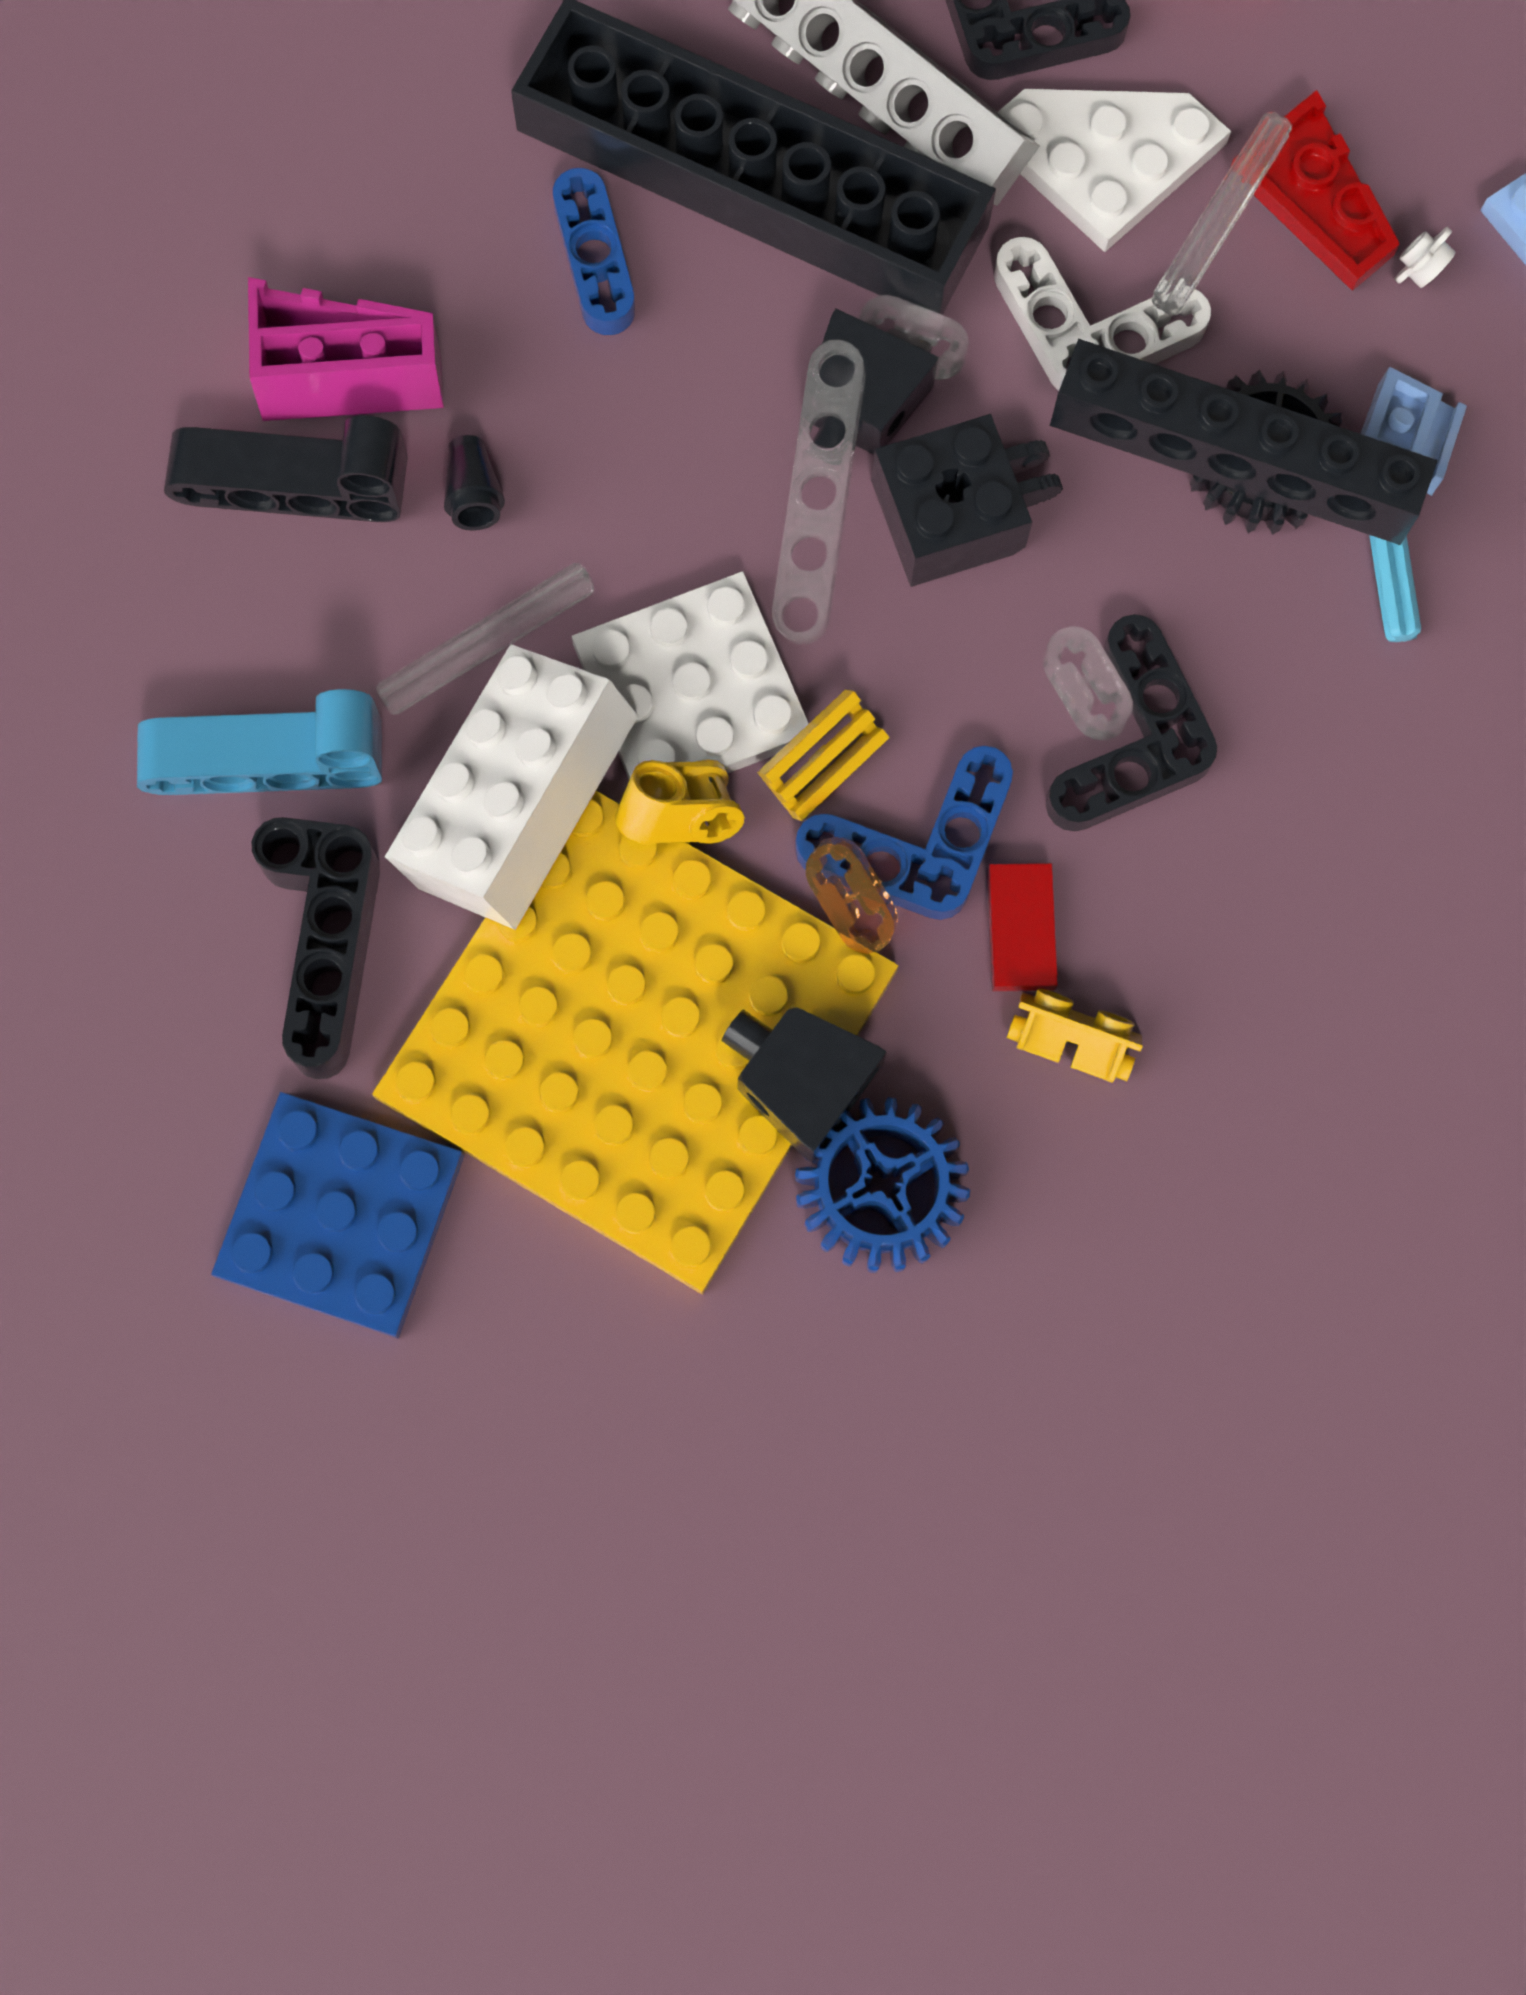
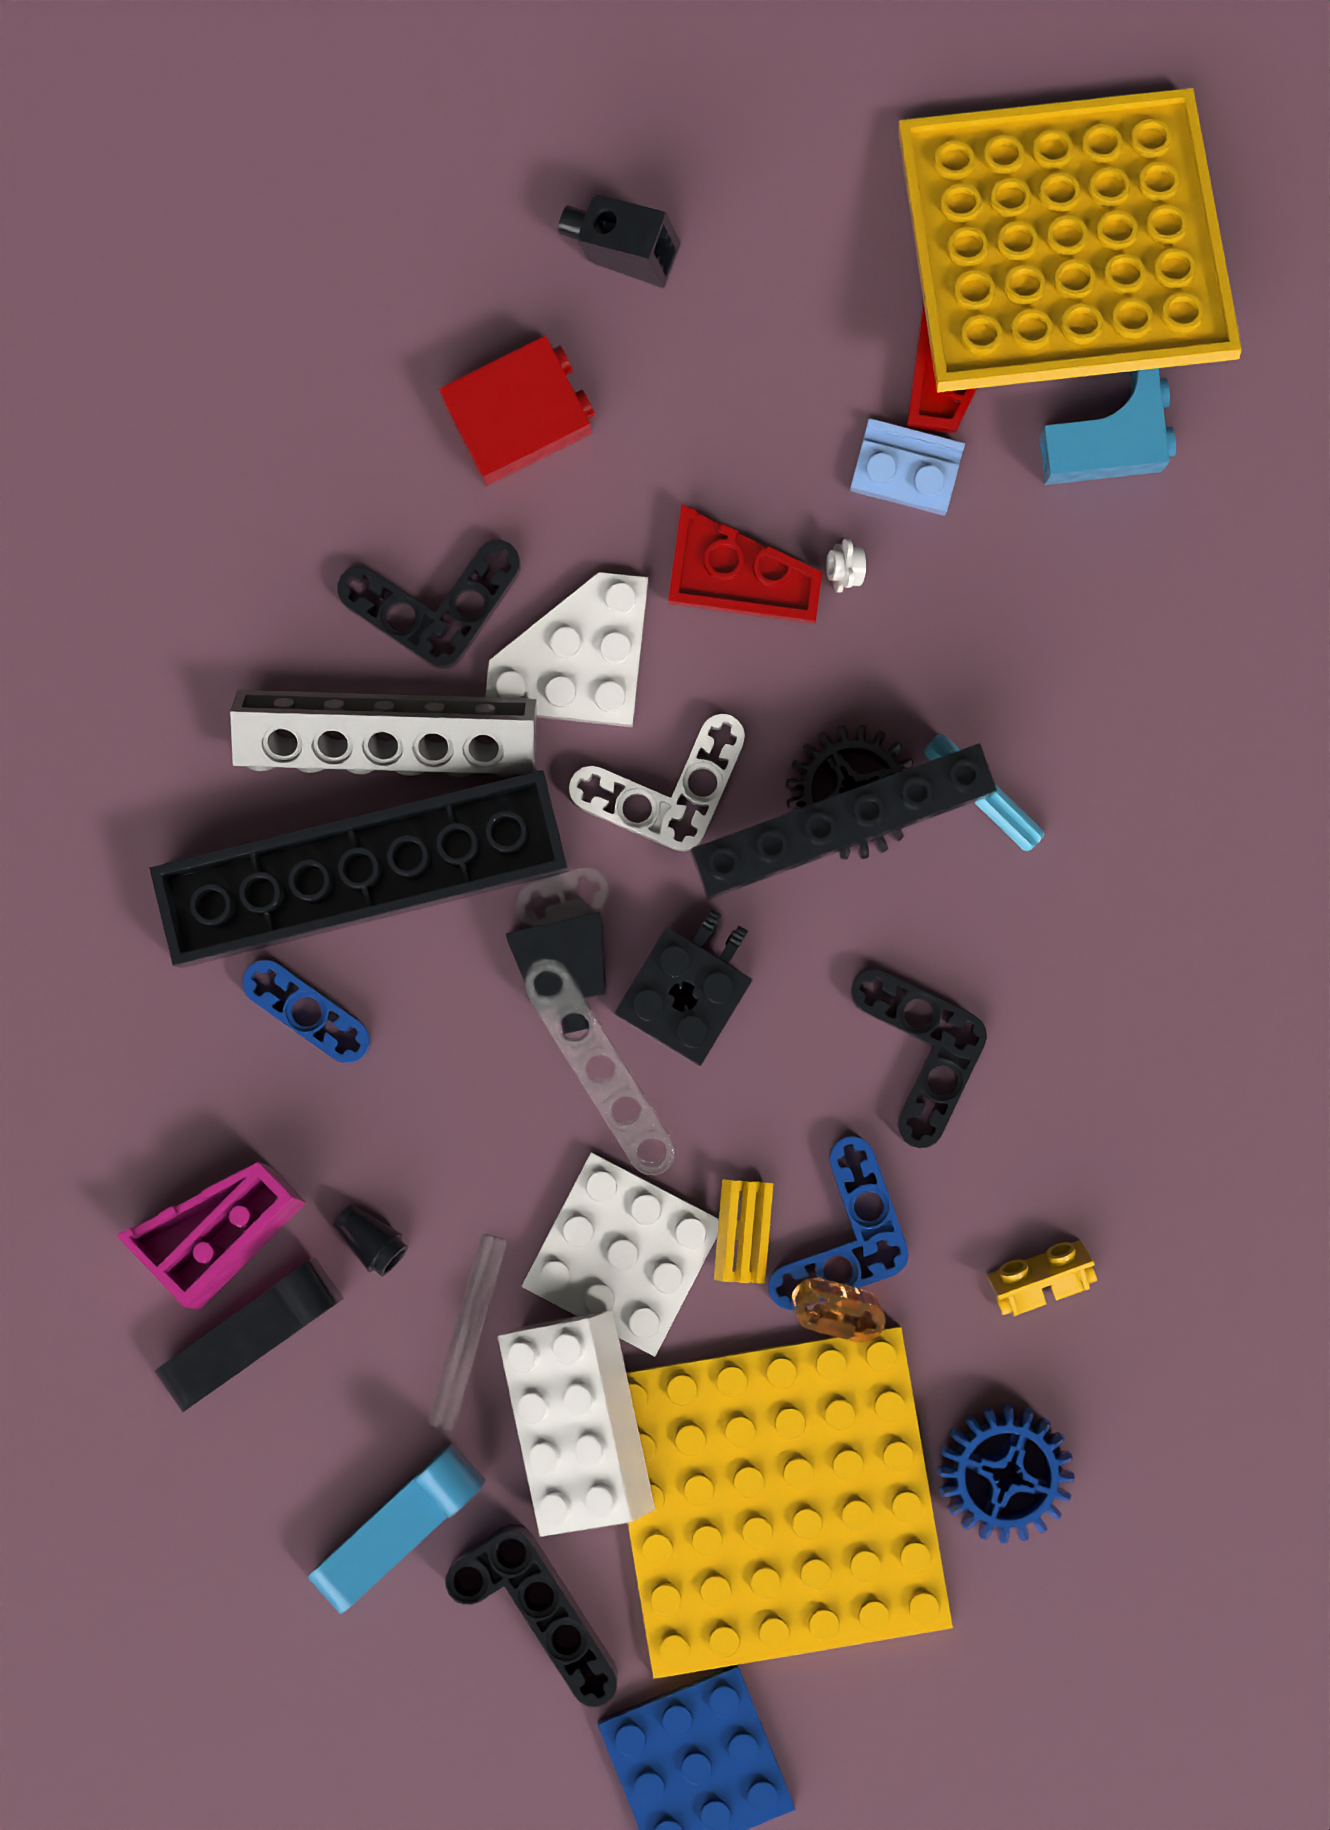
camera: 35 degrees left, 10 degrees up
(673, 802) = (689, 1335): yellow piece -> none
(802, 1073) = (907, 1455): black torso -> none
(1022, 927) = (954, 1235): red tile -> none
(1099, 676) = (870, 1030): clear beam -> none
(1221, 213) = (694, 652): clear axle -> none
(1414, 419) = (932, 703): light blue plate -> none

